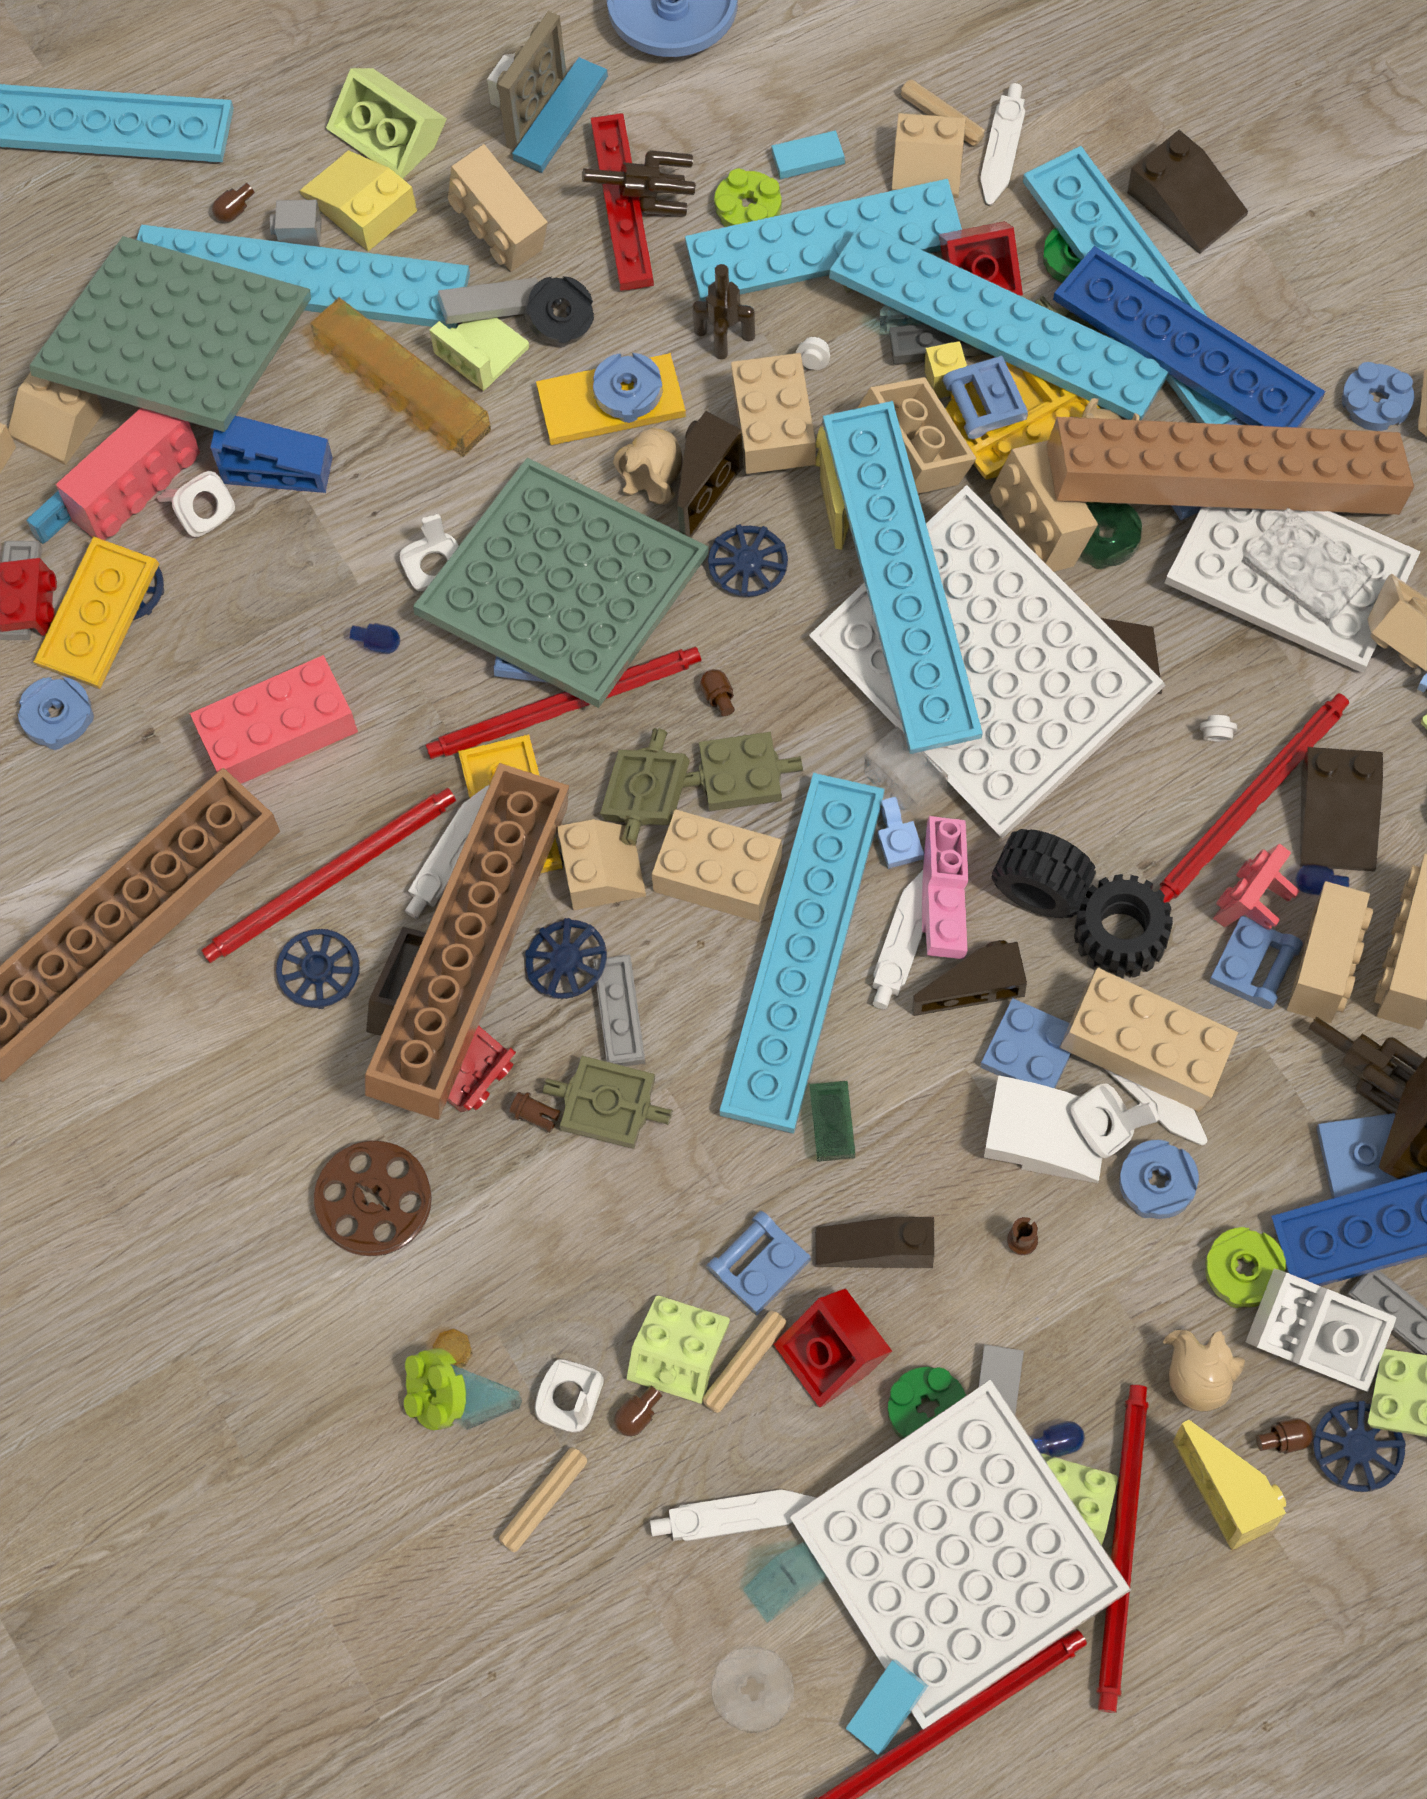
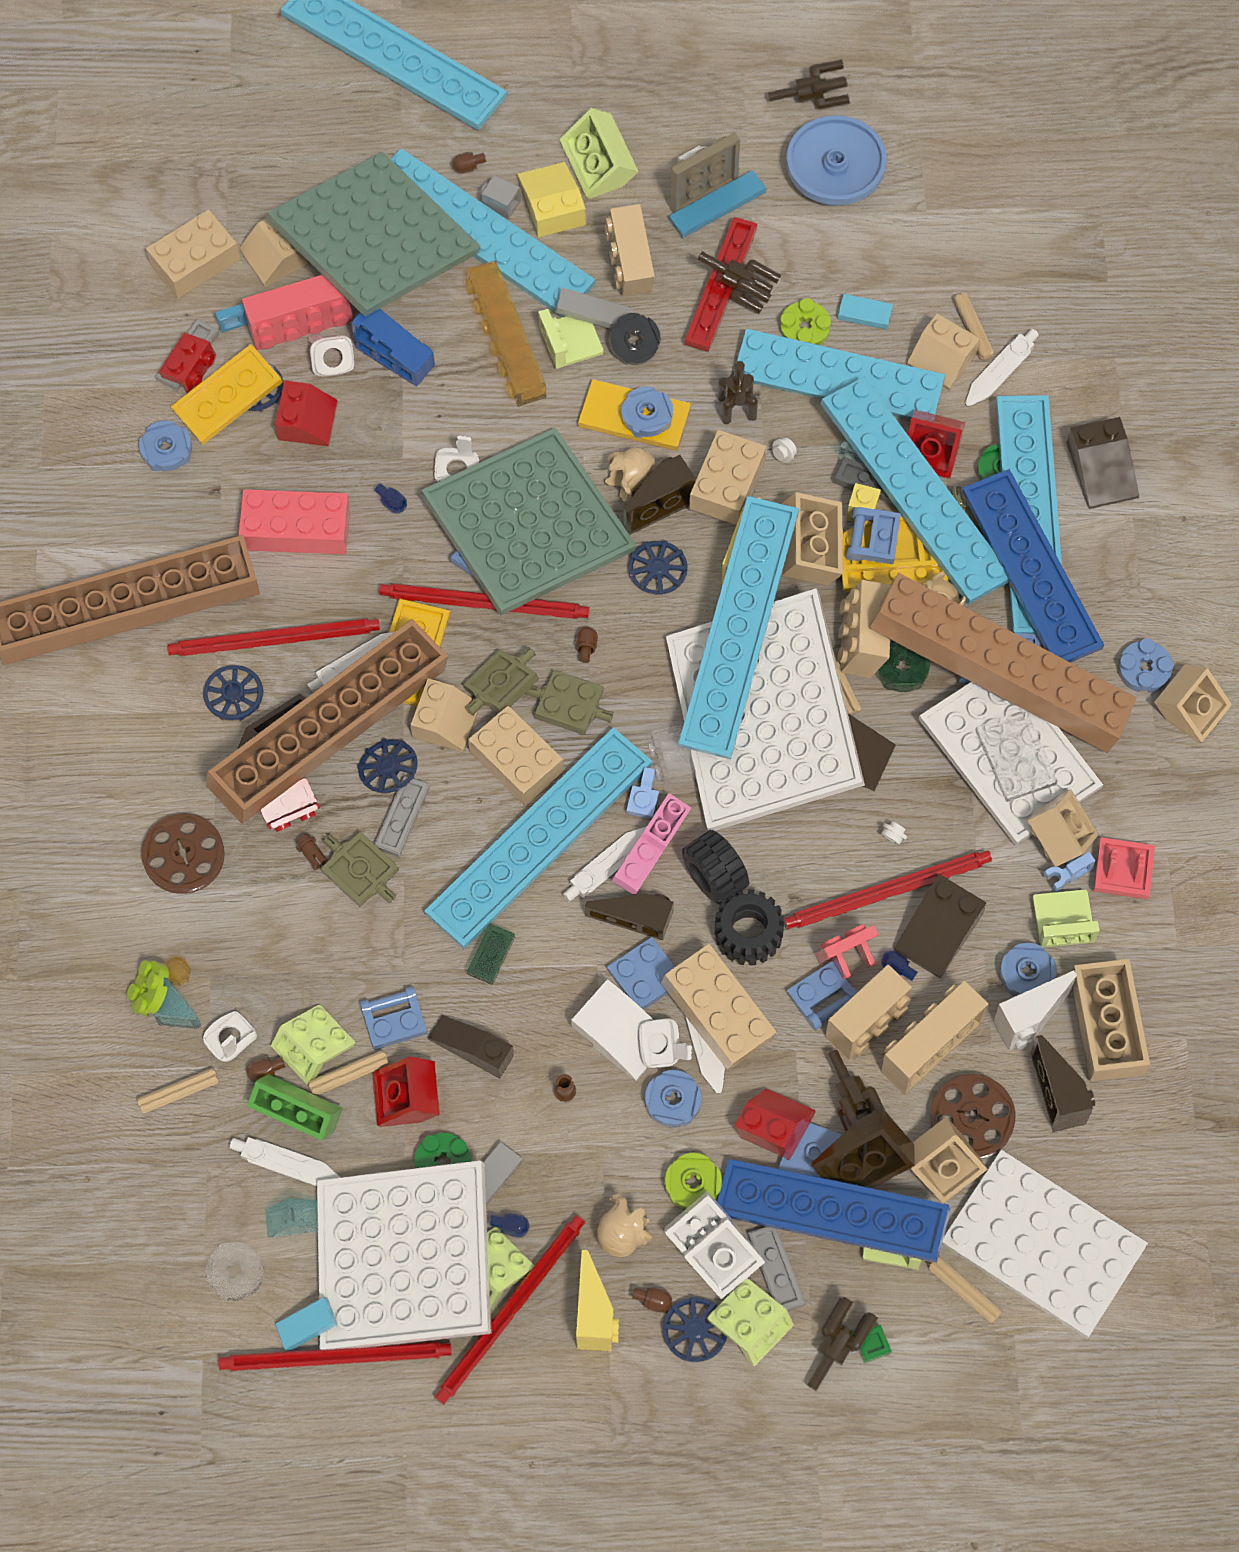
camera: 25 degrees right, 0 degrees up
(210, 589) = (305, 414): none -> red slope
(707, 1439) = (294, 1107): none -> bright green brick
(1299, 1143) = (774, 1122): none -> red slope

